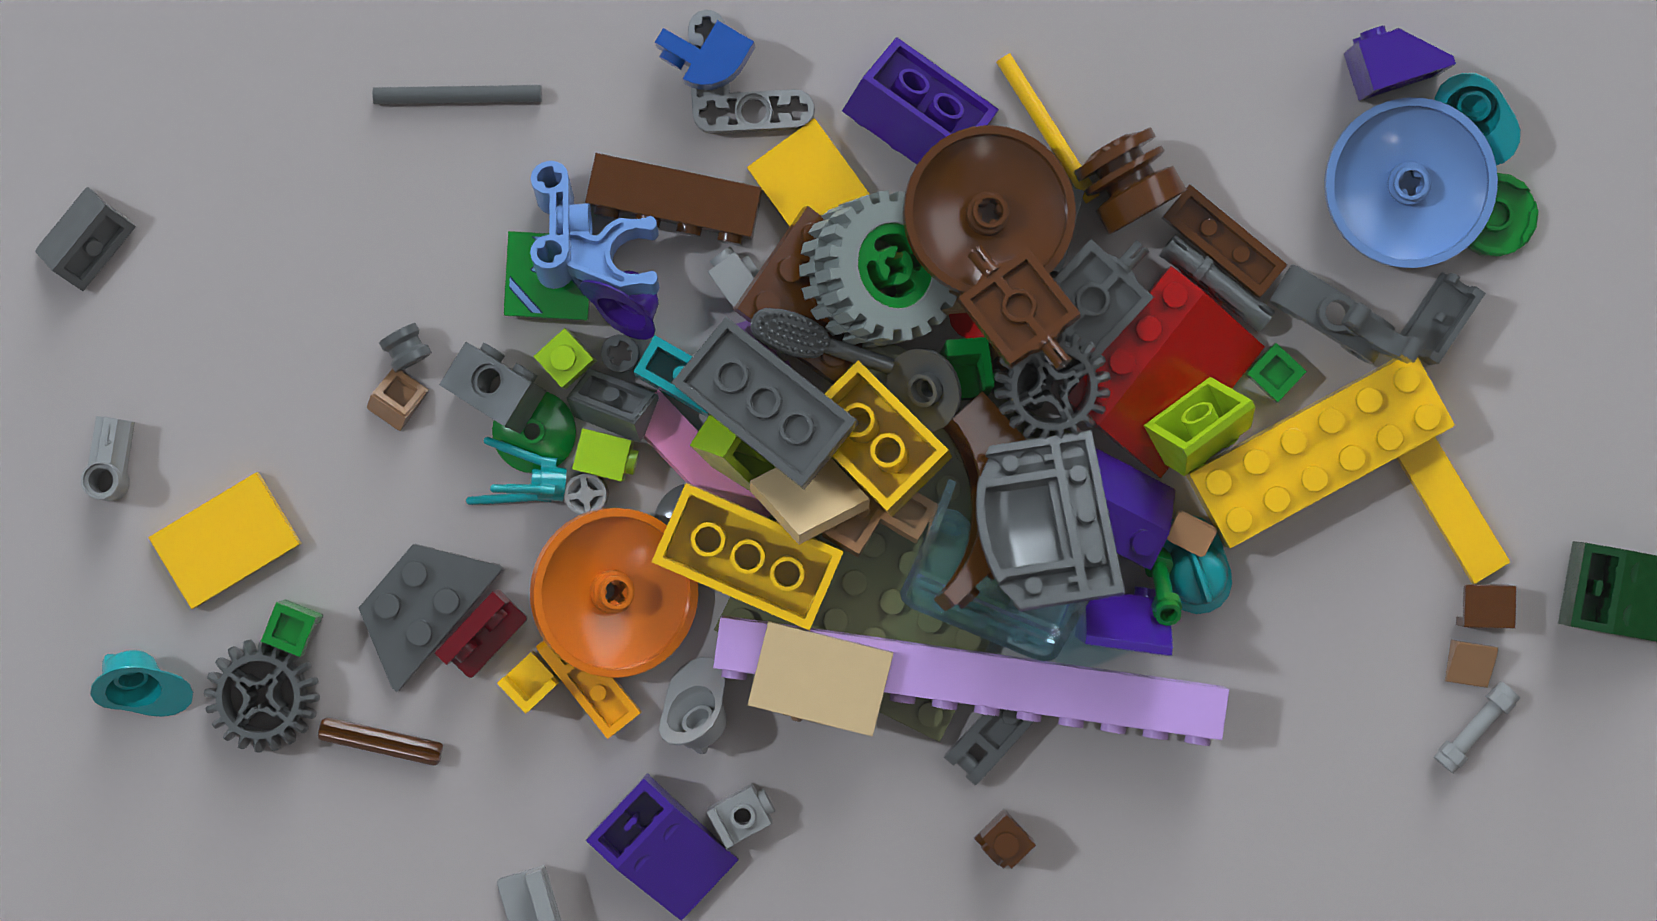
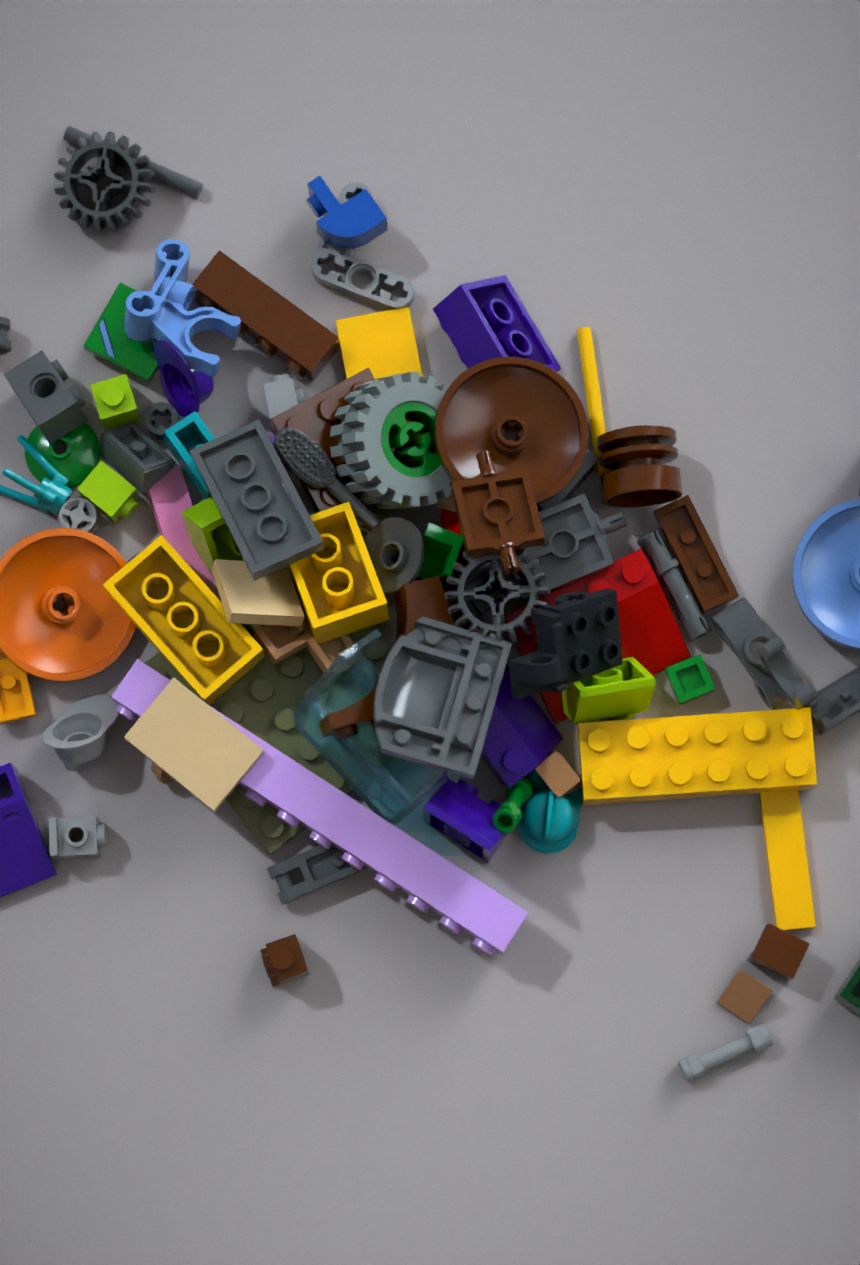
camera: 25 degrees right, 10 degrees down
(445, 152) = (74, 176): none -> dark grey gear
(1151, 402) = (572, 642): none -> black plate

